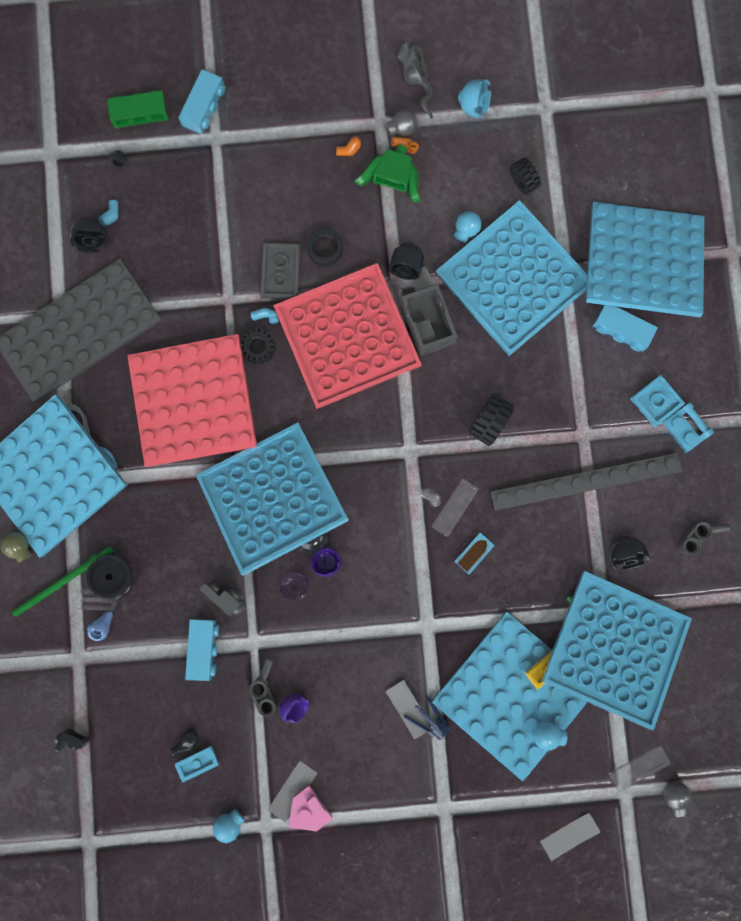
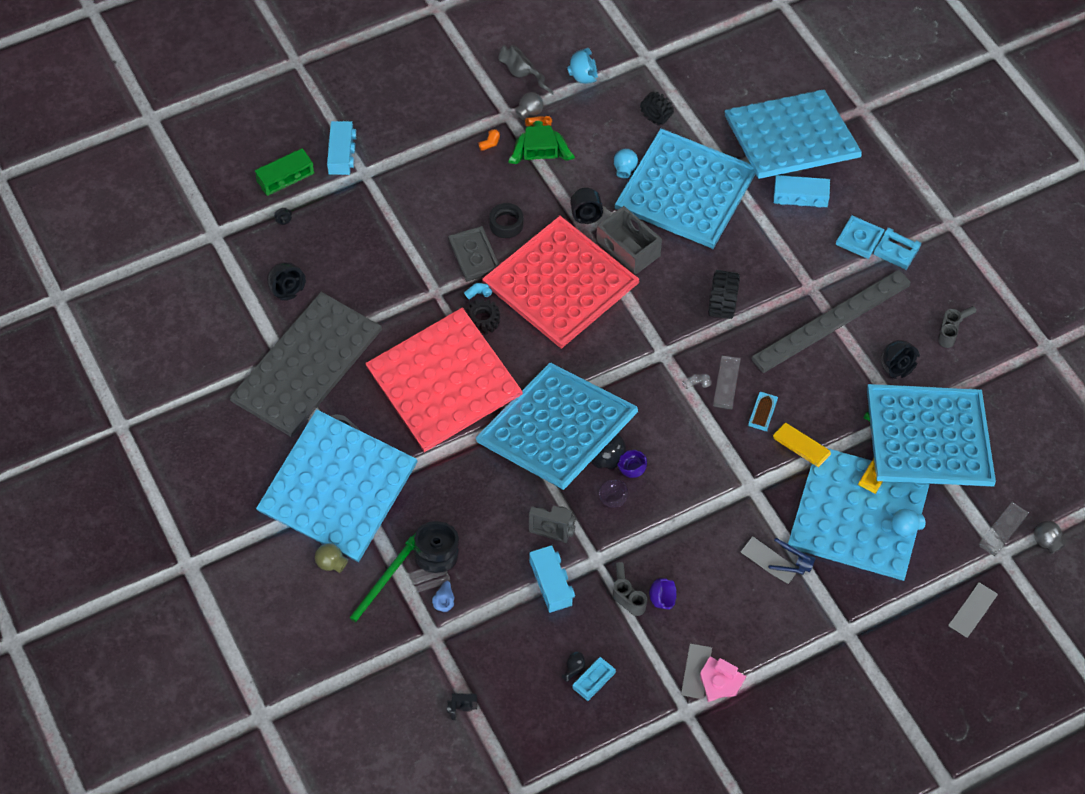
camera: 25 degrees left, 25 degrees down
(110, 215) = (296, 257): medium azure arm -> none
(227, 826) = (650, 720): medium azure piece -> none
(492, 607) = (802, 444): none -> yellow tile

